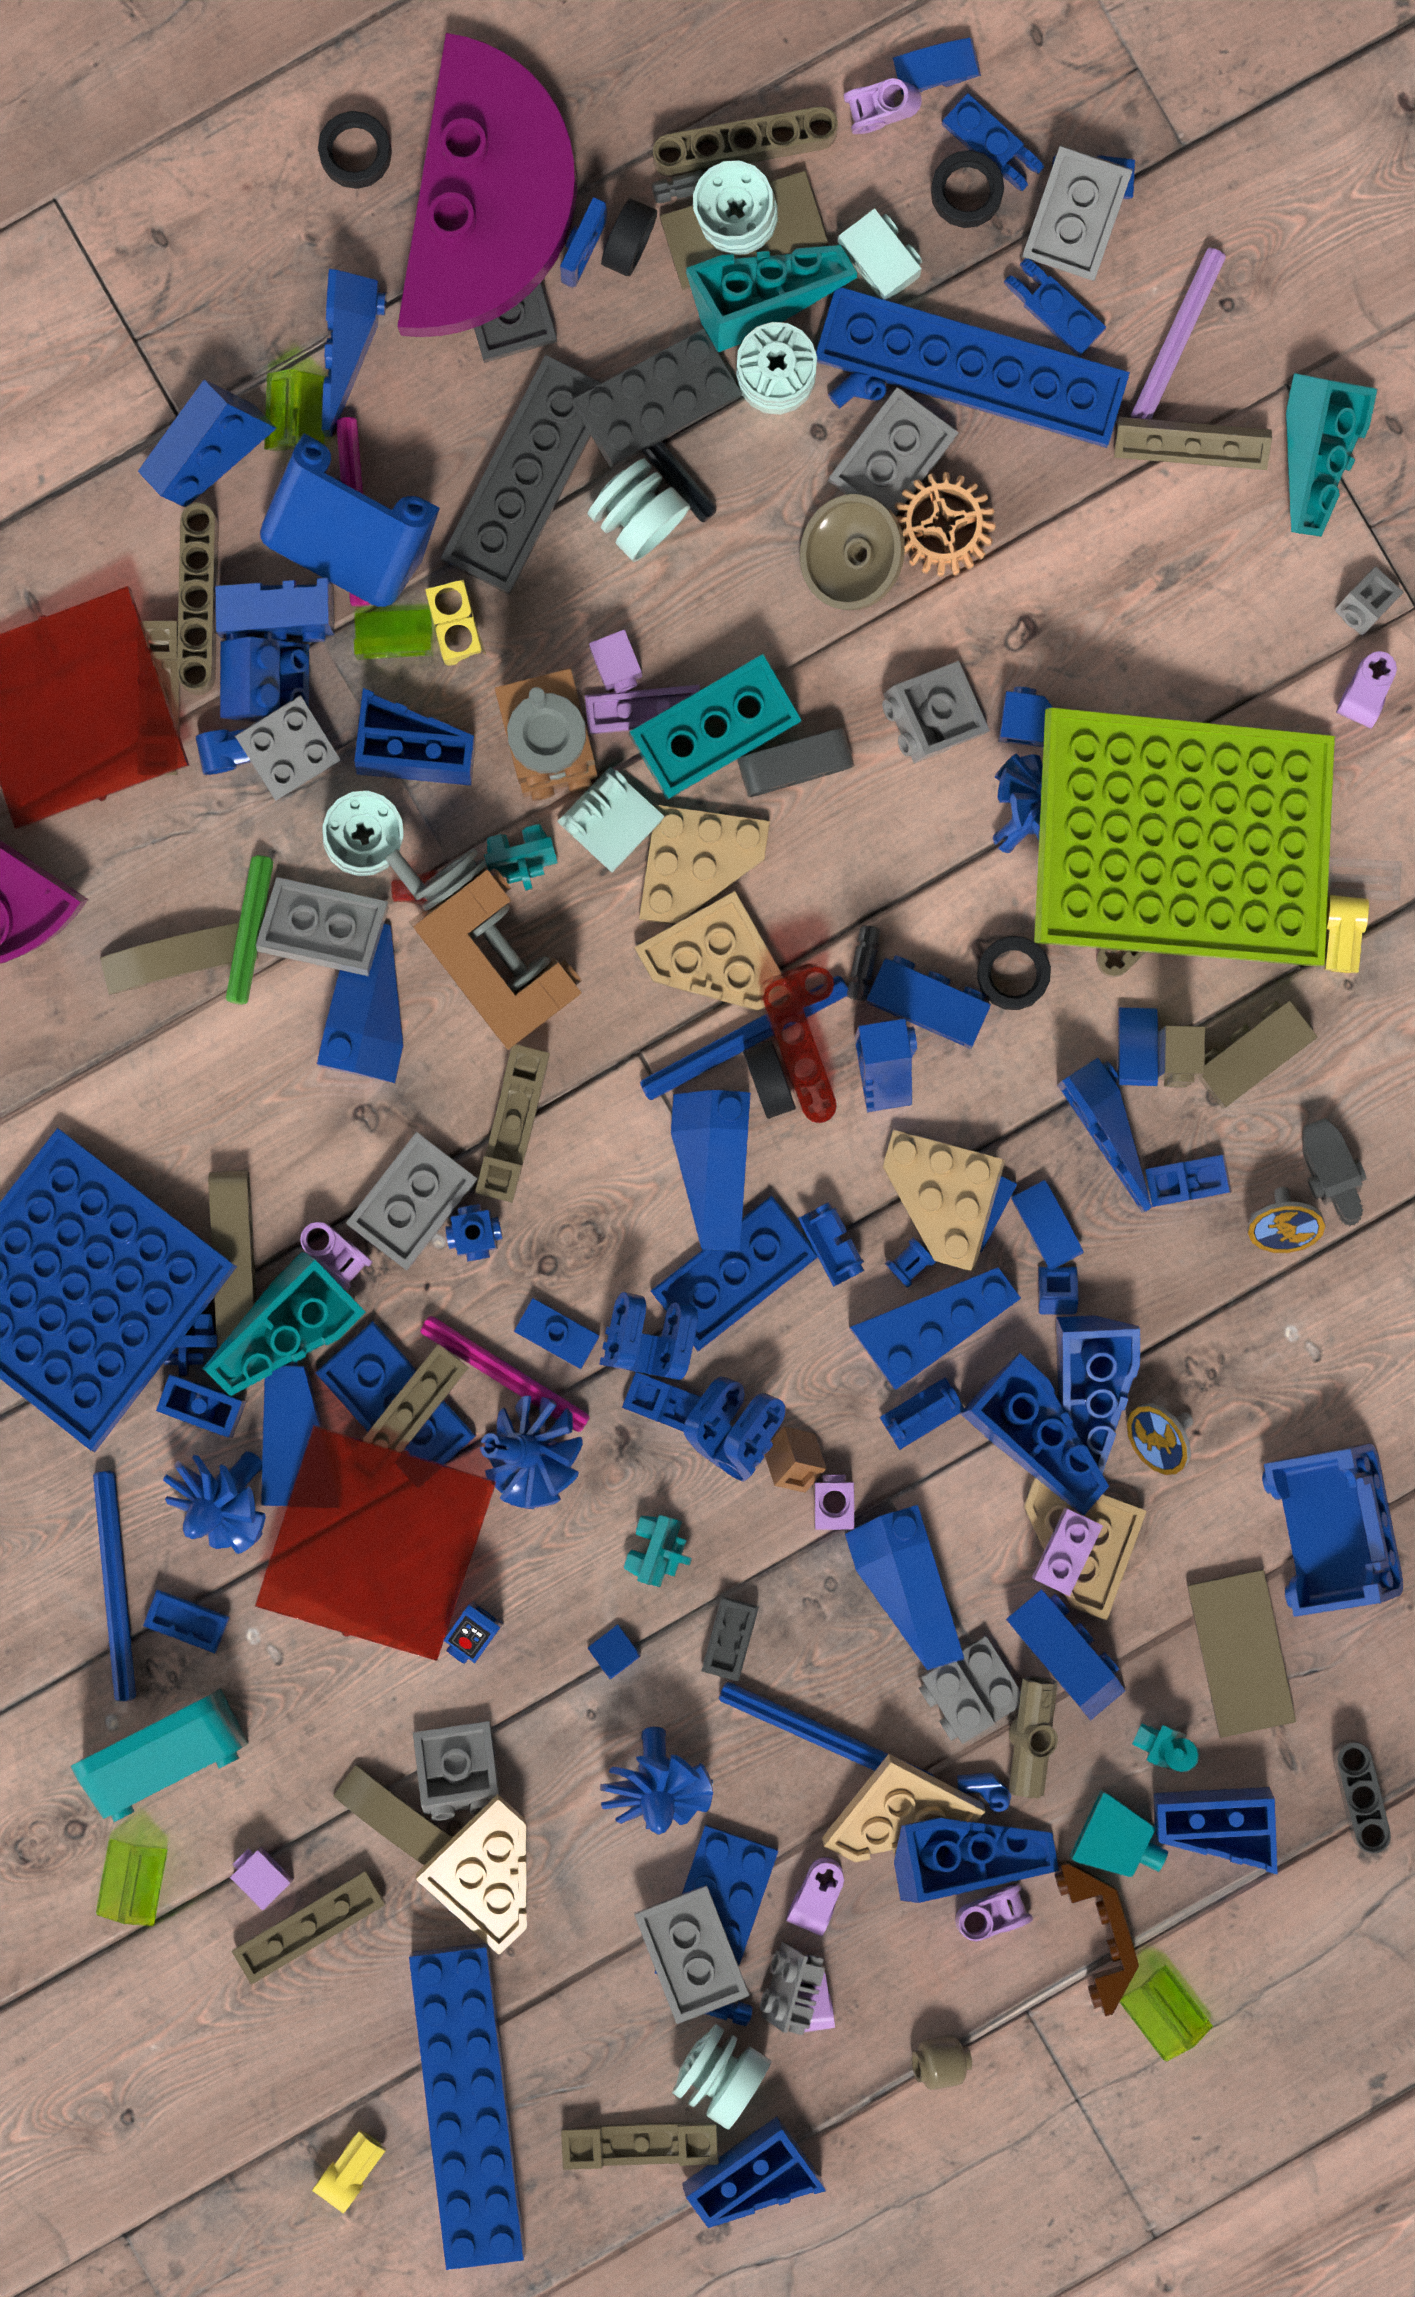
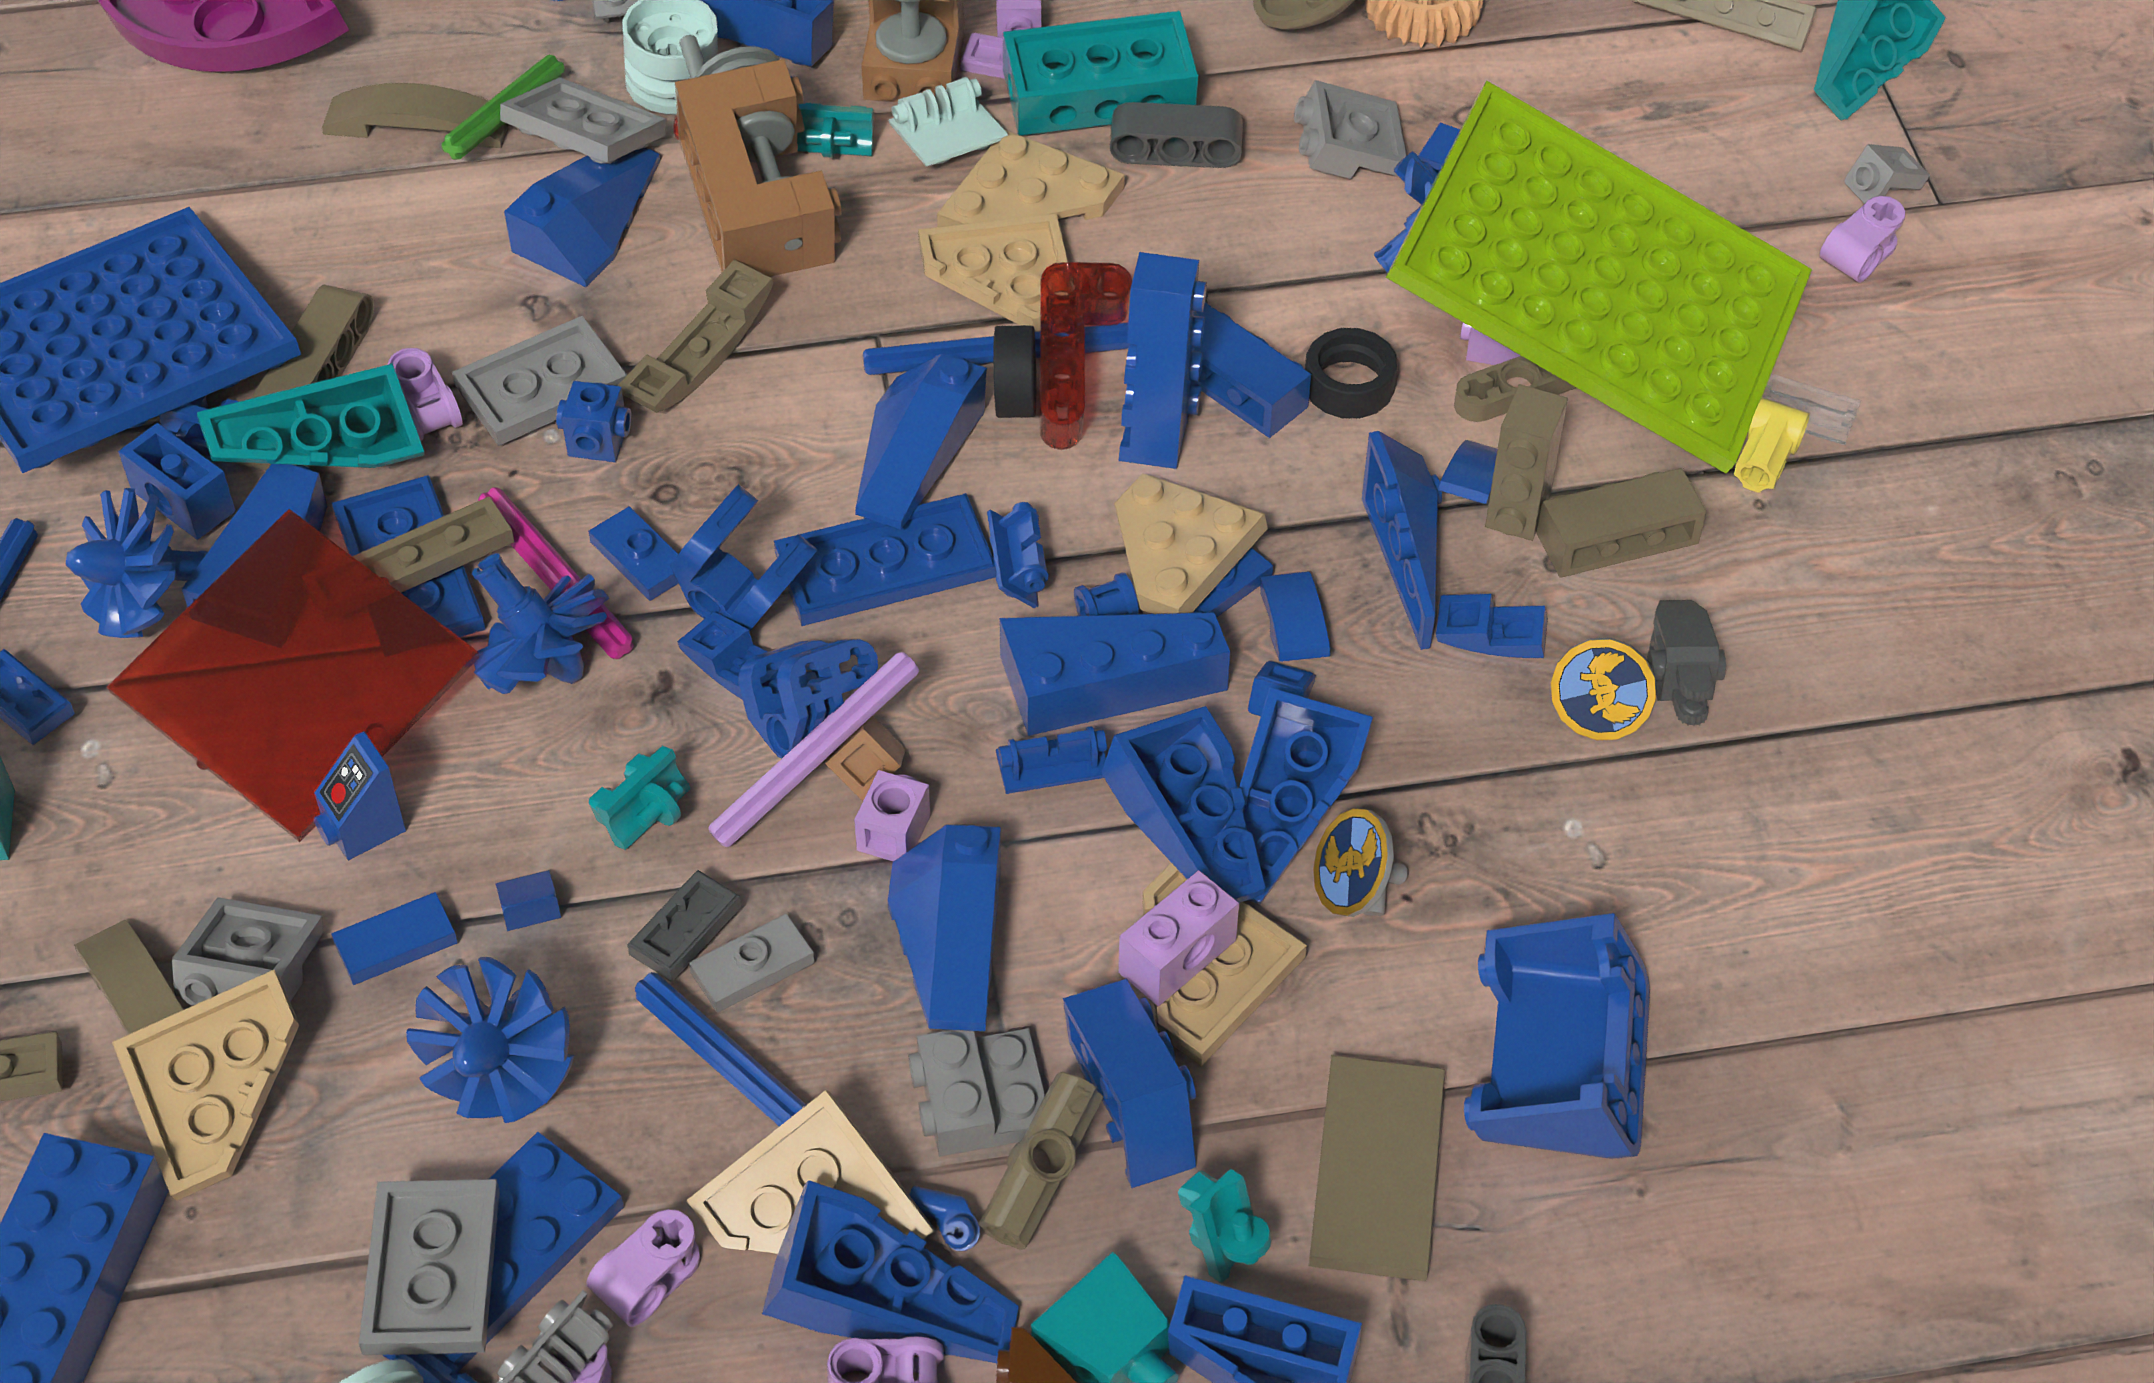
camera: 15 degrees right, 35 degrees down
(541, 1714) = (394, 938): none -> blue tile
(763, 1479) = (813, 749): none -> lavender axle
(784, 1647) = (751, 963): none -> light grey plate

